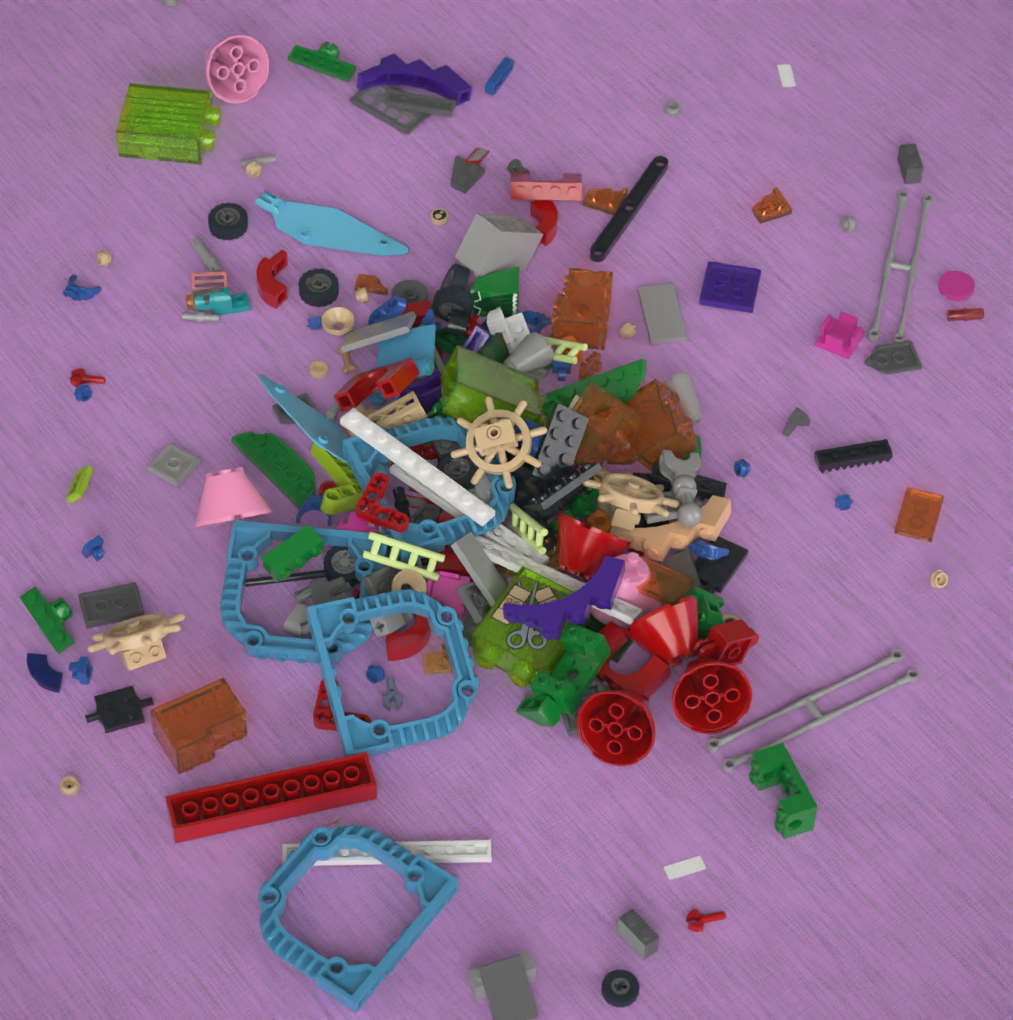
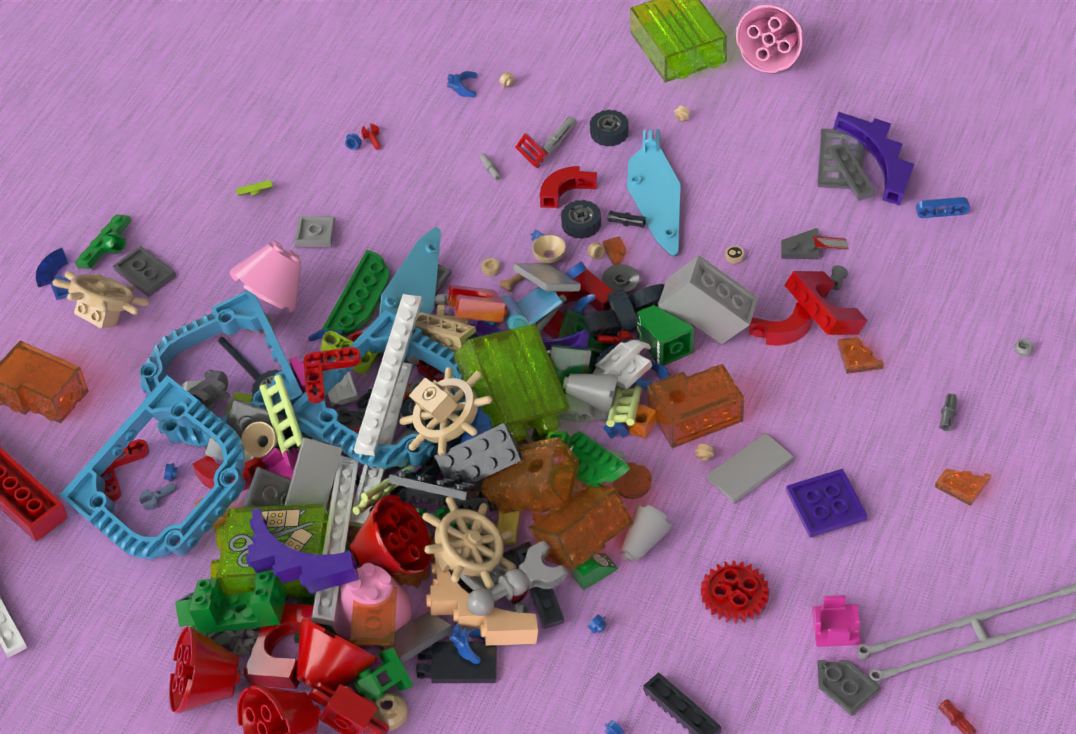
camera: 65 degrees right, 0 degrees up
(94, 548) = (192, 229): blue tile -> none
(119, 709) = (38, 329): black plate -> none
(219, 300) = (512, 166): teal plate -> none
(261, 160) = (696, 112): light grey bar -> none
(292, 553) = (237, 341): green brick -> none
(323, 61) = (848, 89): green plate -> none
(335, 265) = (626, 219): none -> black pin
(592, 366) = (630, 444): clear orange wing -> none
(623, 217) = (877, 379): black beam -> none
(700, 179) = (948, 412): none -> dark grey axle
(772, 376) = (734, 591): none -> red gear
(796, 418) = (688, 636): dark grey tile -> none
(847, 223) = (994, 556): light grey plate -> none
(956, 285) = (994, 692): dark pink tile -> none

